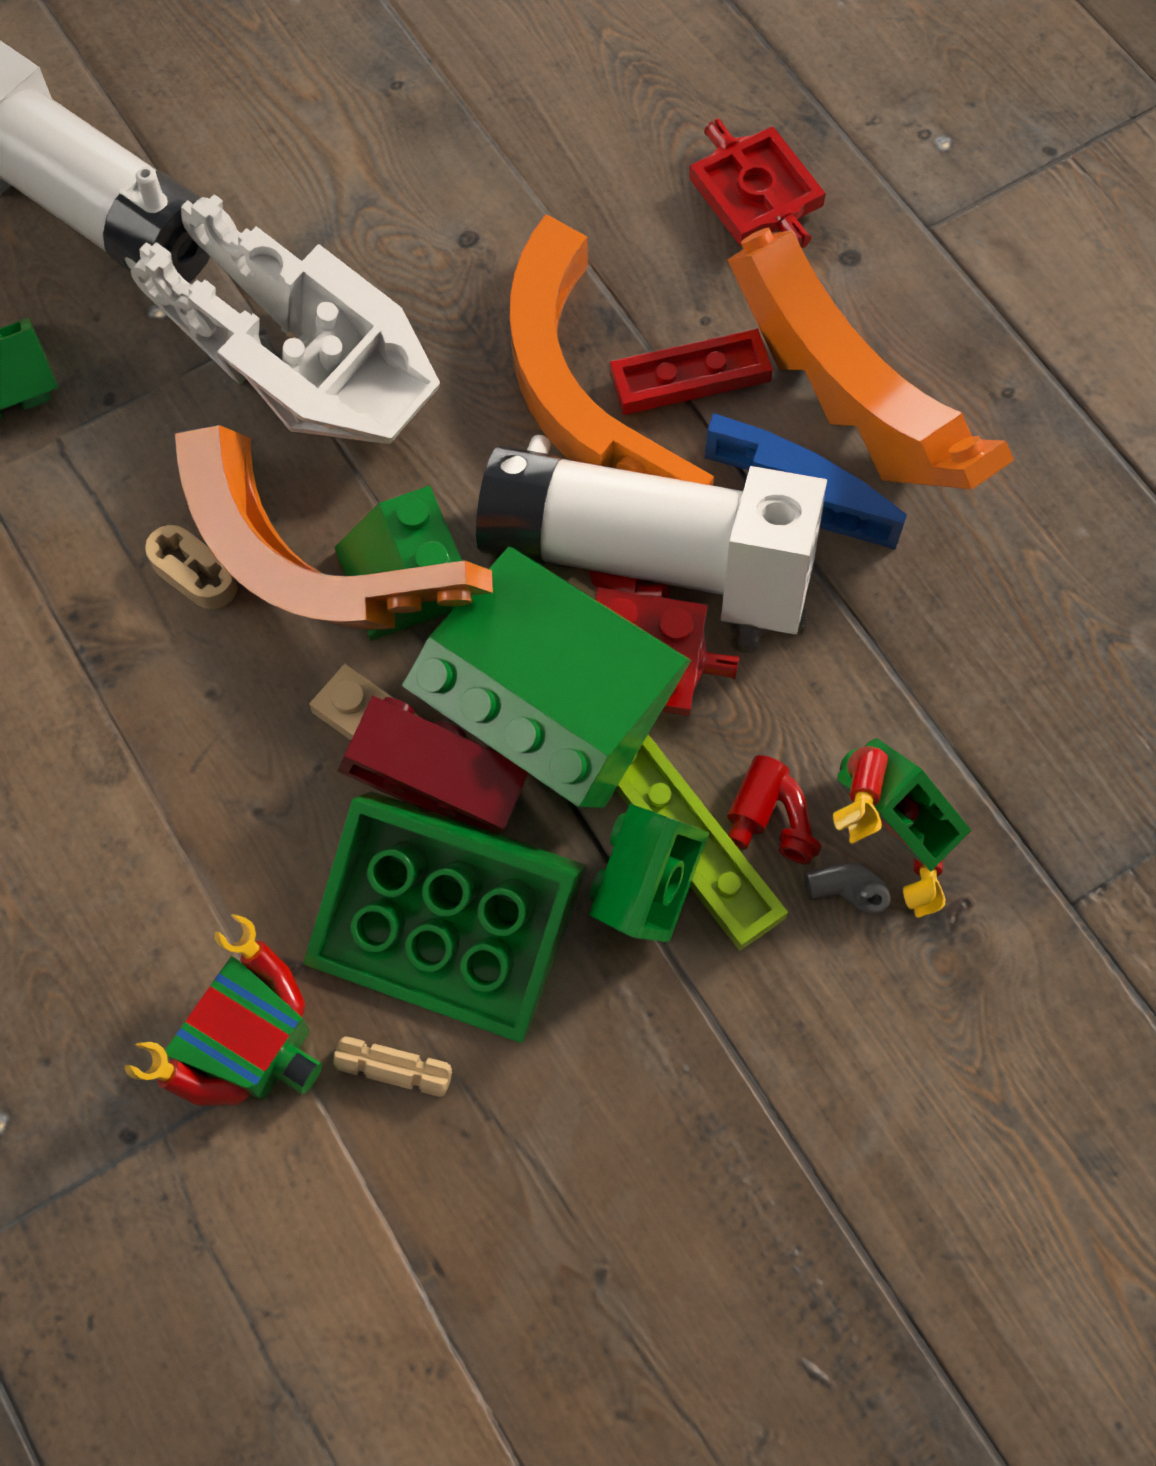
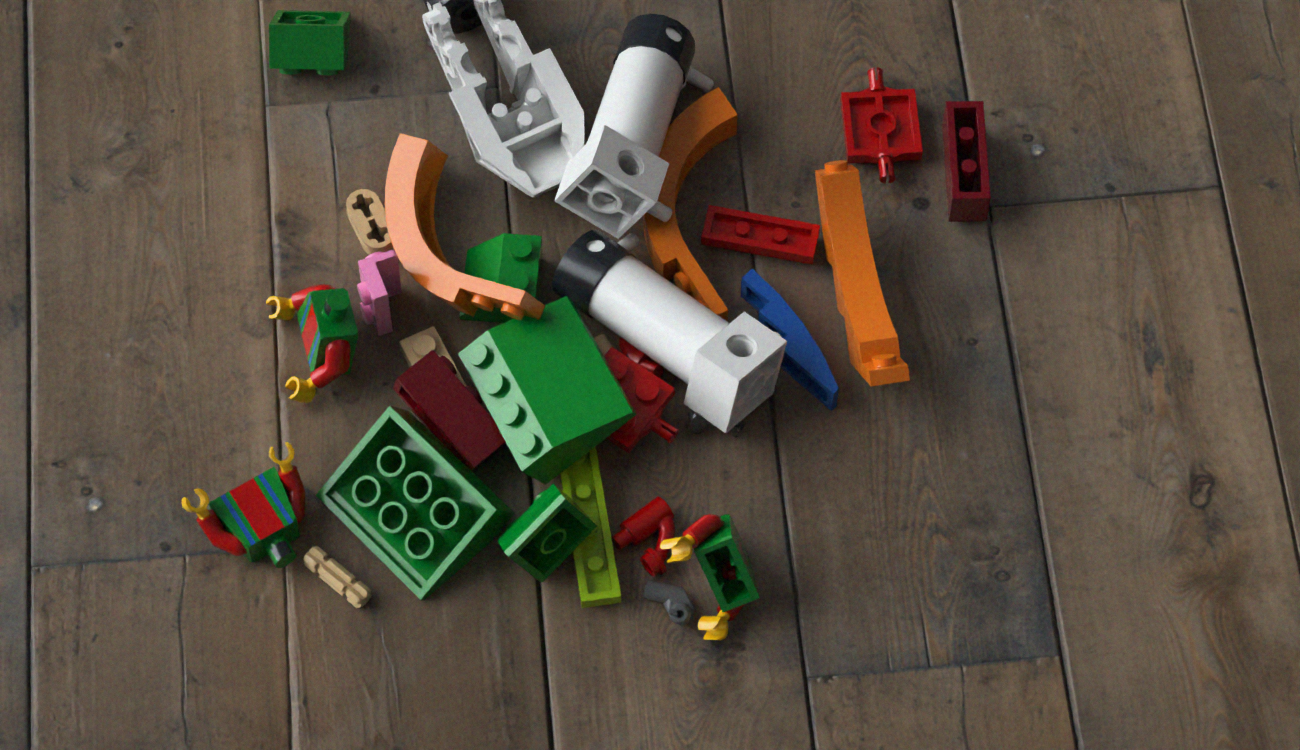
camera: 25 degrees right, 5 degrees down
(209, 735) = (327, 335): none -> torso
(246, 642) = (378, 281): none -> bright pink bracket
(487, 359) = (620, 166): none -> white piece
(886, 181) = (966, 161): none -> dark red brick

